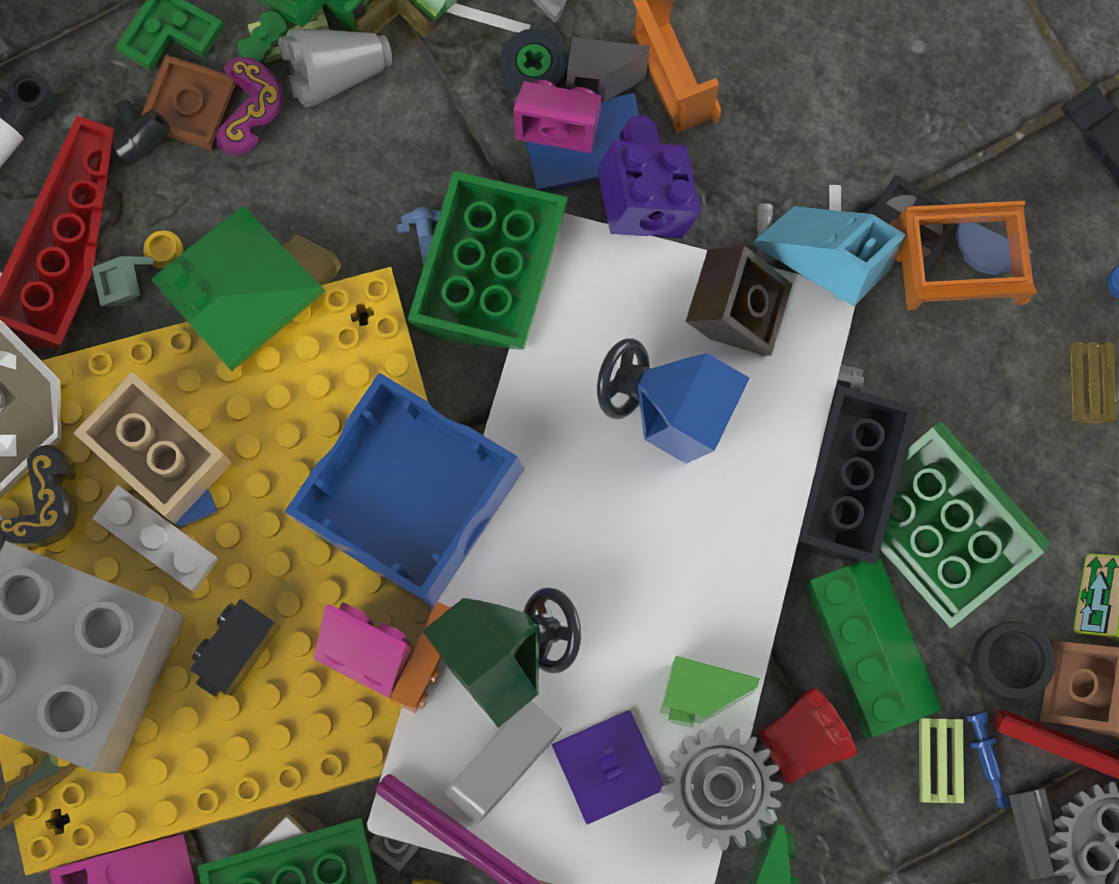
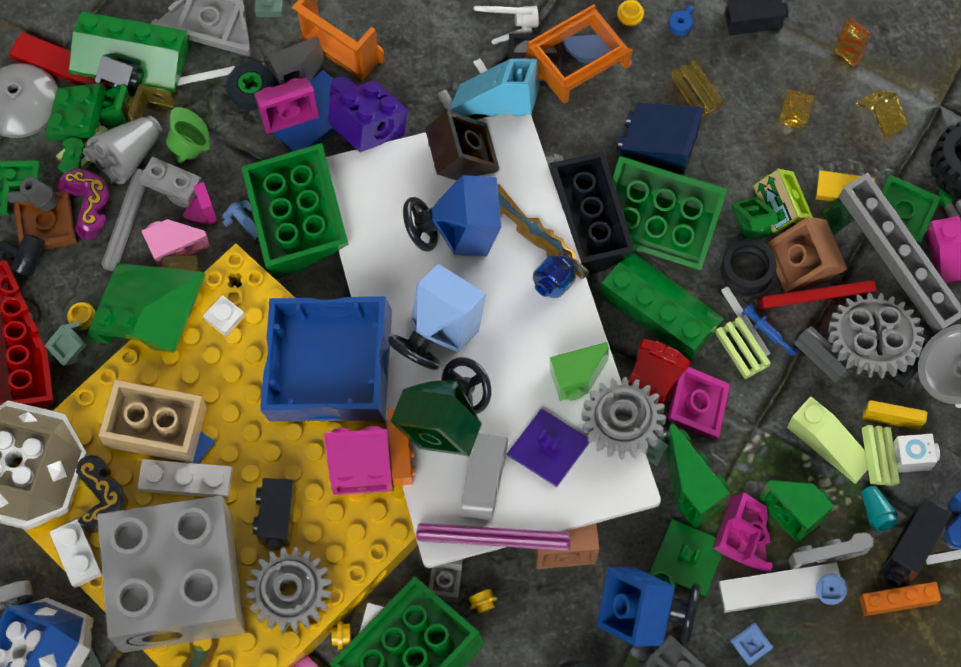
camera: 30 degrees left, 10 degrees down
(167, 751) = (295, 608): none -> light grey gear
(190, 64) = (36, 193): none -> dark grey piece
(235, 836) = (341, 635): none -> yellow plate
(284, 154) = (124, 222): none -> light grey axle
(319, 356) = (224, 316): none -> white plate
(320, 216) = (173, 239): none -> bright pink slope
(362, 137) = (170, 181): none -> light grey plate
(381, 192) = (201, 208): none -> dark pink tile
(418, 86) = (187, 134): none -> bright green piece
(576, 522) = (443, 312): none -> light blue piece
(749, 545) = (554, 276): none -> clear blue head
(763, 467) = (535, 232): none -> pearl gold sword
(841, 803) = (698, 403): none -> dark pink slope
(929, 162) = (524, 16): none -> white plant
(966, 708) = (738, 310): none -> white sticker
(1005, 425) = (661, 135): none -> dark blue slope
(1061, 599) = (754, 218): none -> green slope
(1069, 232) = (630, 13): none -> yellow plate

